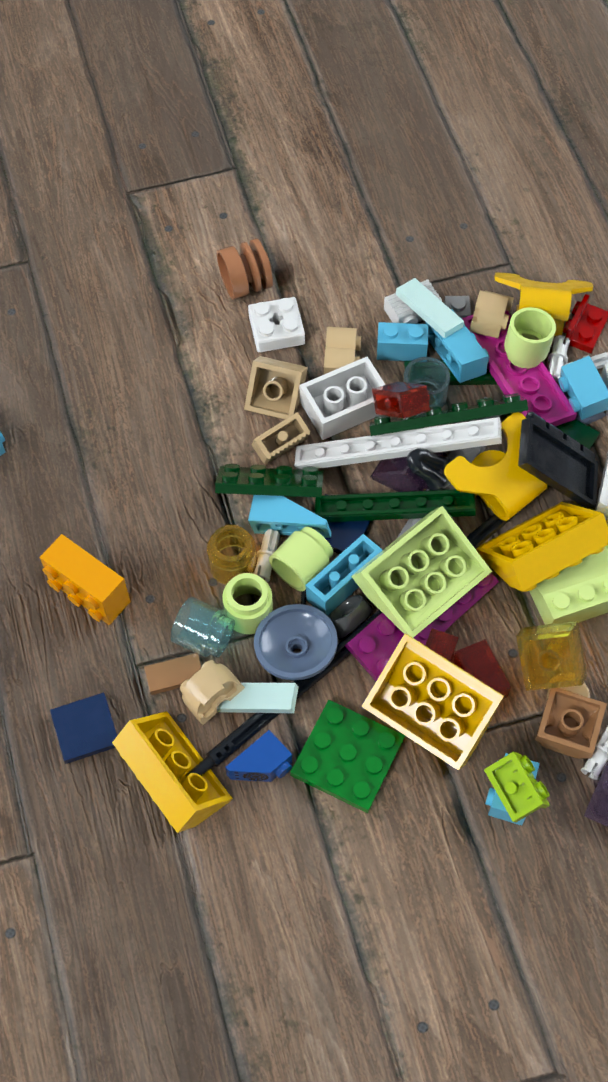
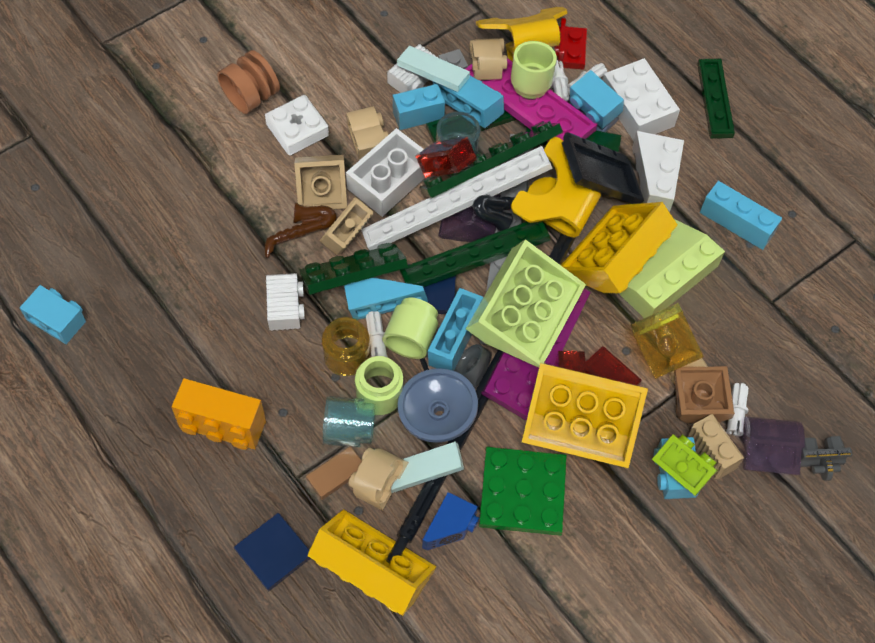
camera: 25 degrees left, 0 degrees up
(192, 492) = (283, 301): none -> white brick
(253, 422) = (312, 218): none -> reddish brown piece
(560, 780) = (716, 443): none -> tan brick

